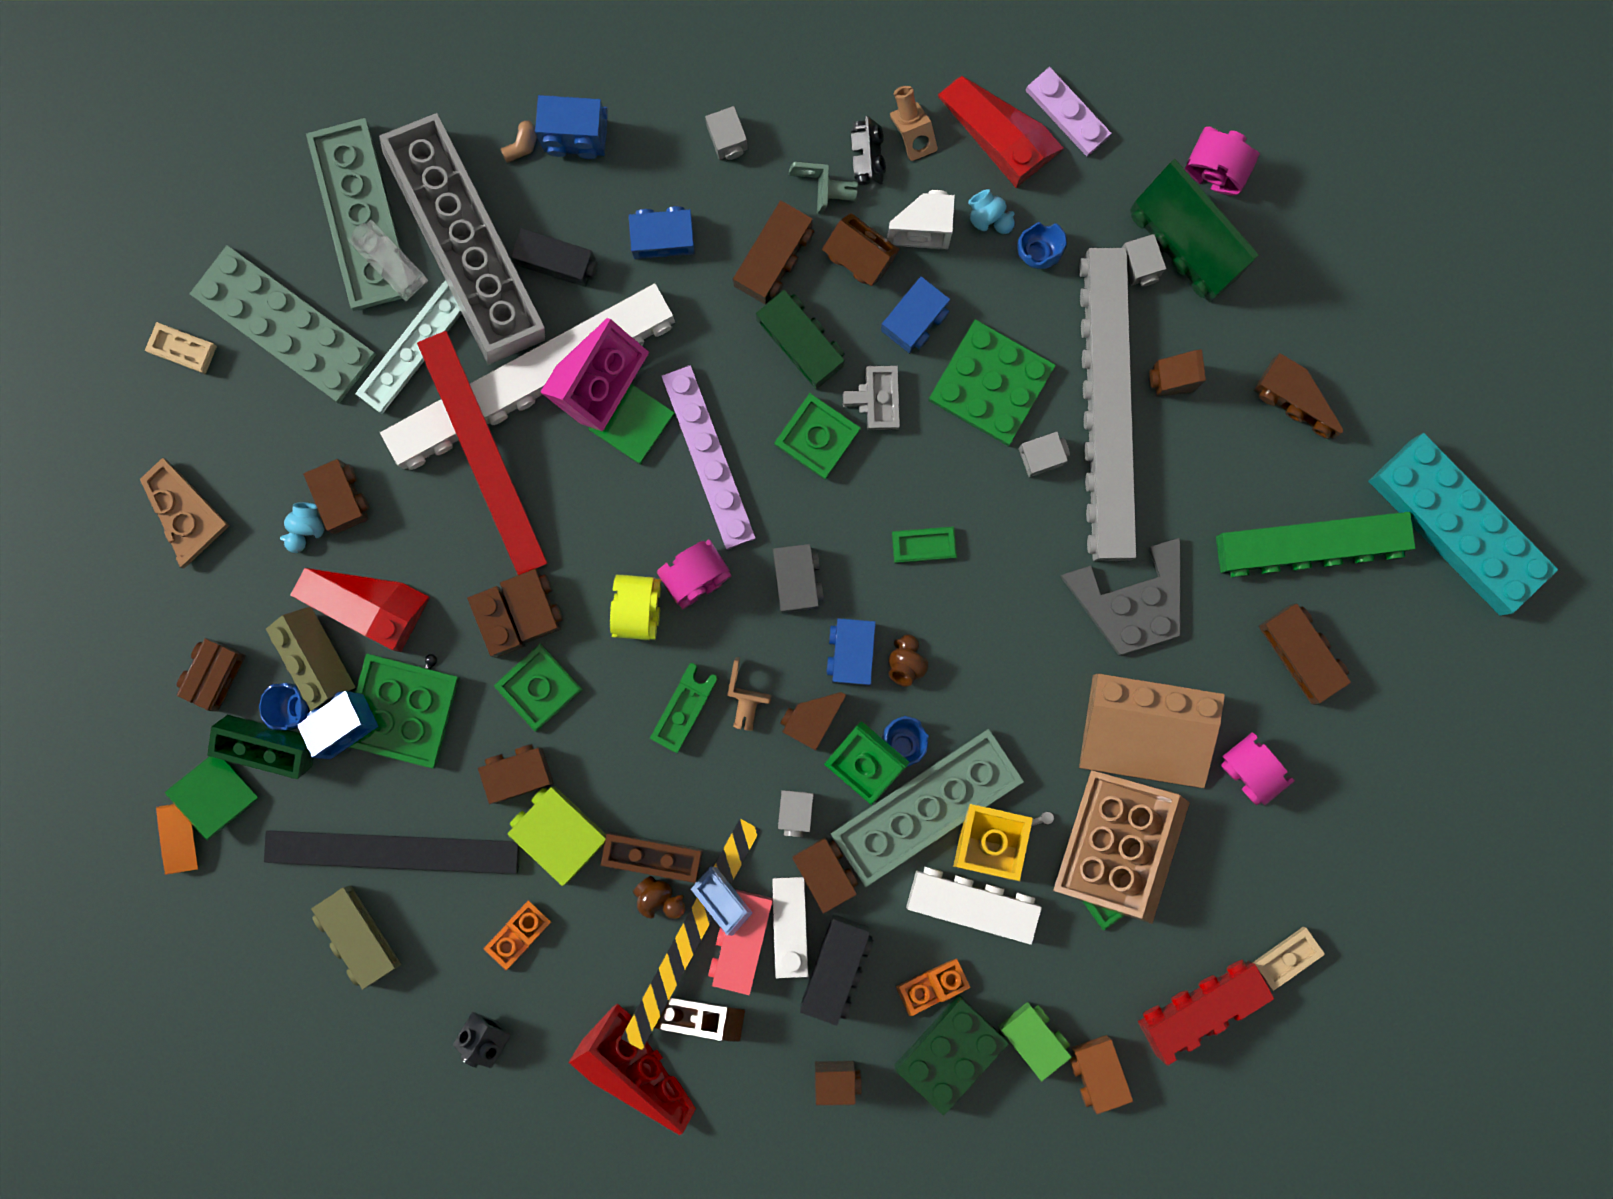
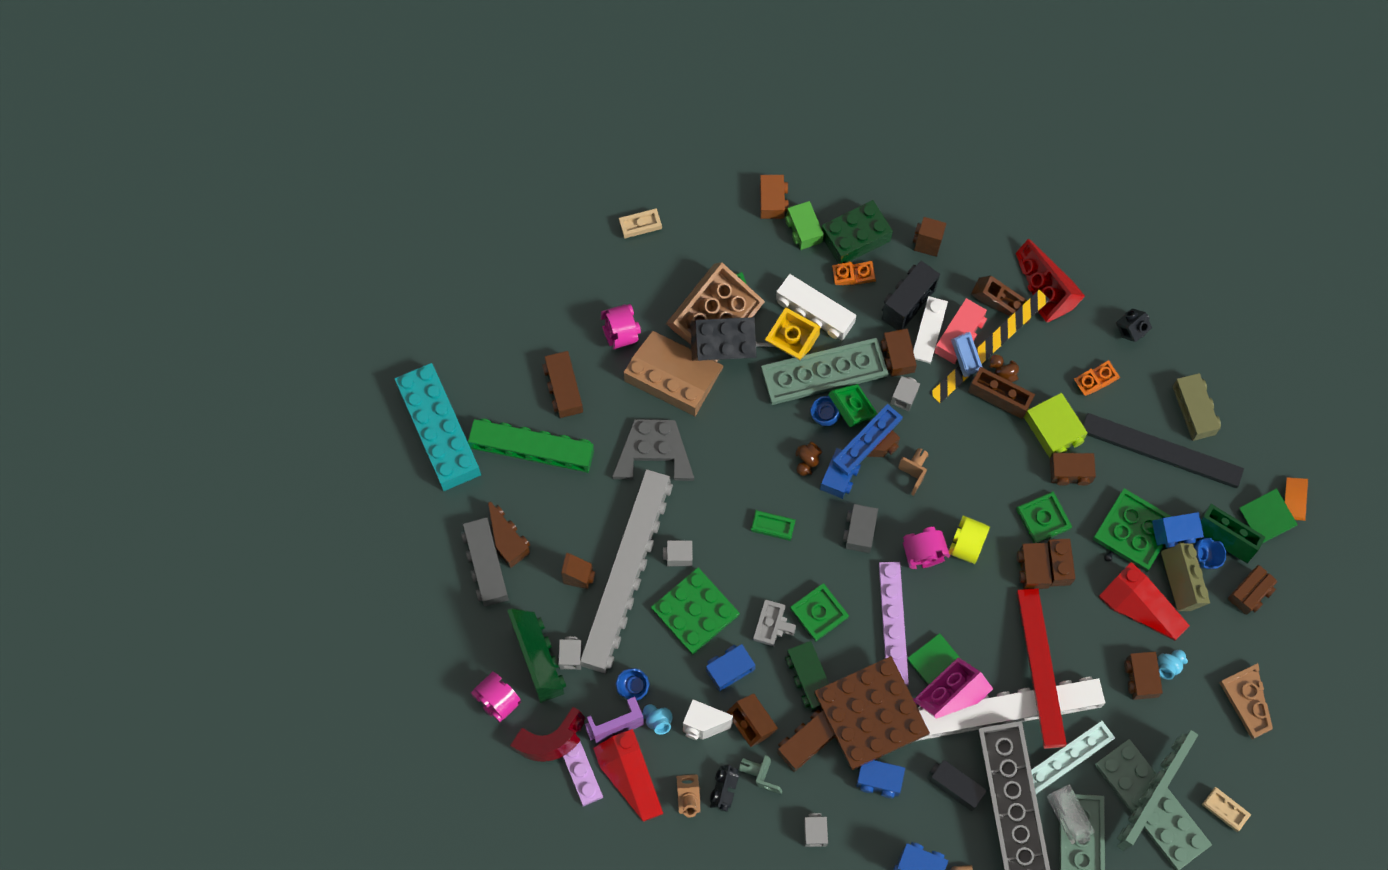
camera: 165 degrees left, 15 degrees down
(276, 325) = (1159, 785): none -> sand green plate
(683, 710) = (956, 474): green plate -> none
(699, 307) = (871, 713): none -> reddish brown plate
(828, 707) = (867, 440): none -> blue plate
(1023, 196) = (616, 726): none -> medium lavender panel
(1095, 798) = (723, 339): none -> black brick
(1142, 115) = (552, 745): none -> dark red arch
(1204, 1010) = (701, 209): red wedge -> none
(1308, 343) = (485, 562): none -> dark grey brick

